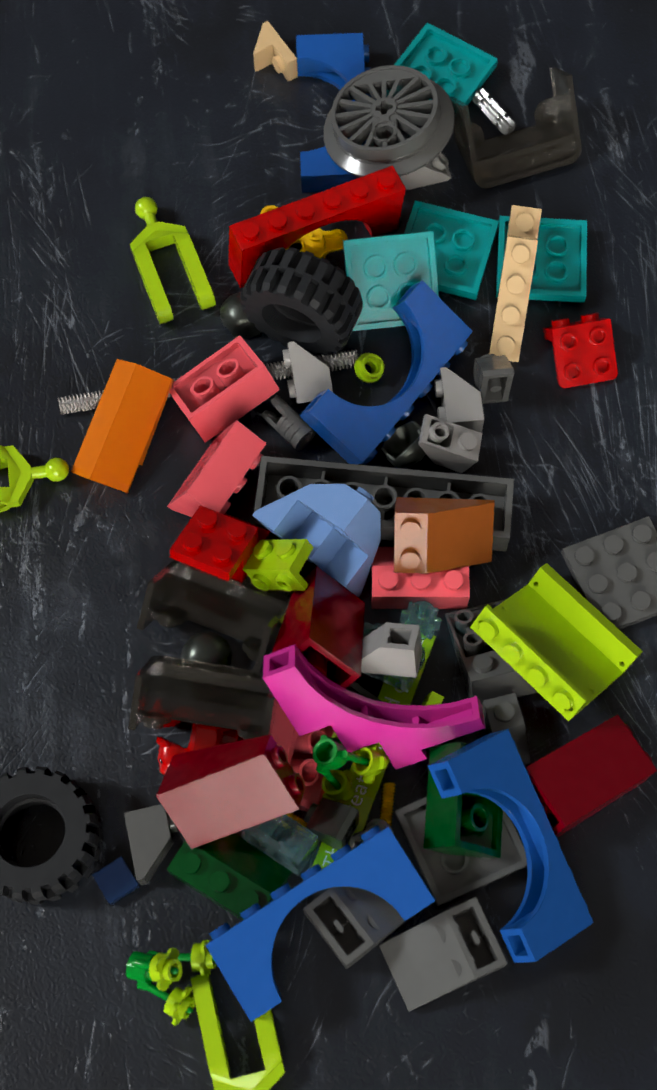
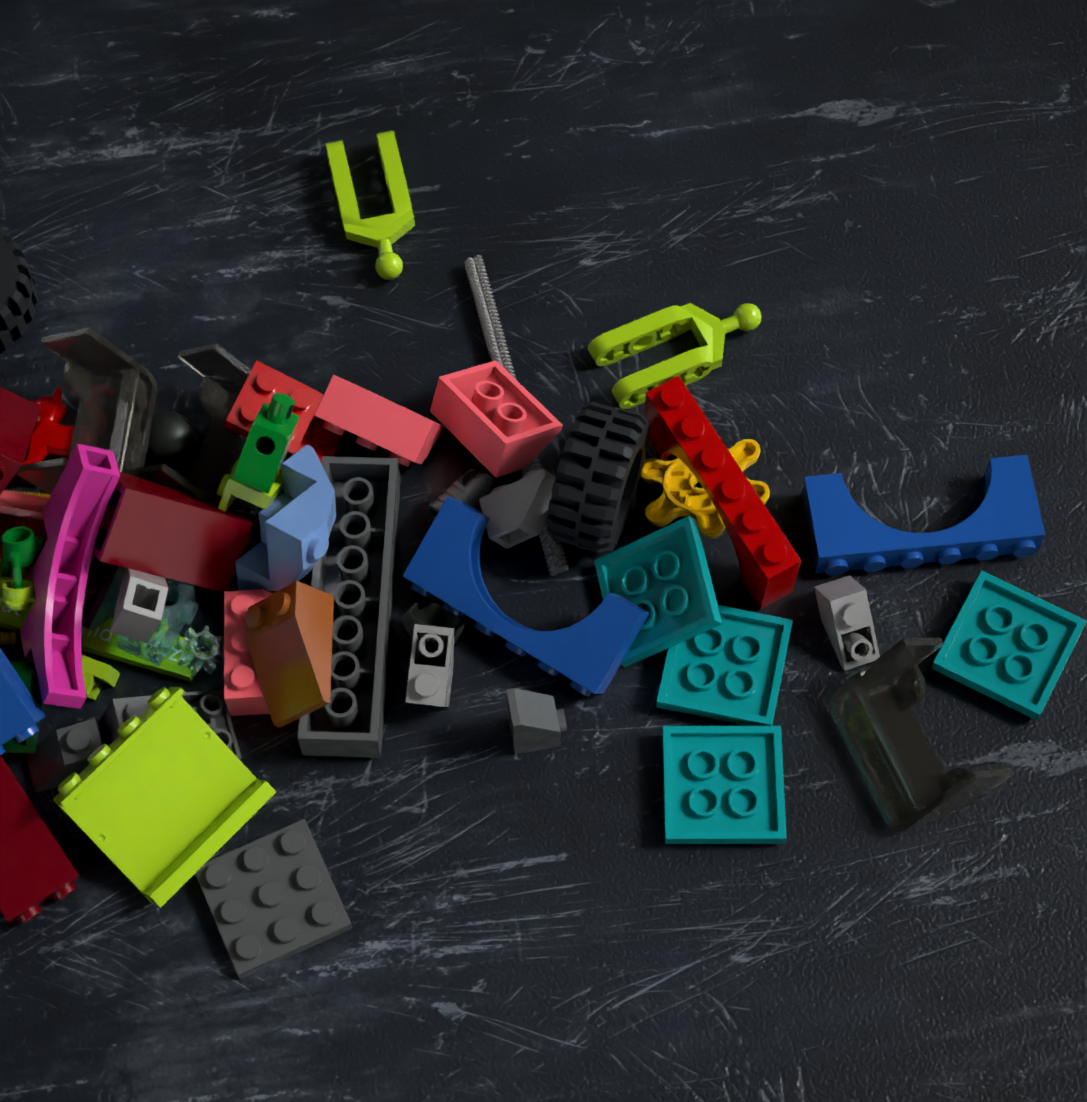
camera: 85 degrees right, 5 degrees down
(123, 425) = (440, 322): orange slope -> none
(264, 533) = (267, 444): none -> green torso
(273, 50) = (1008, 434): tan slope -> none
(374, 362) = (533, 577): lime plate -> none
(385, 119) = (875, 555): dark grey piece -> none
(459, 401) = (486, 685): light grey slope -> none
(494, 111) = (956, 718): axle -> none
(515, 282) = (680, 735): tan arch -> none
(583, 350) = (588, 835): red bracket -> none

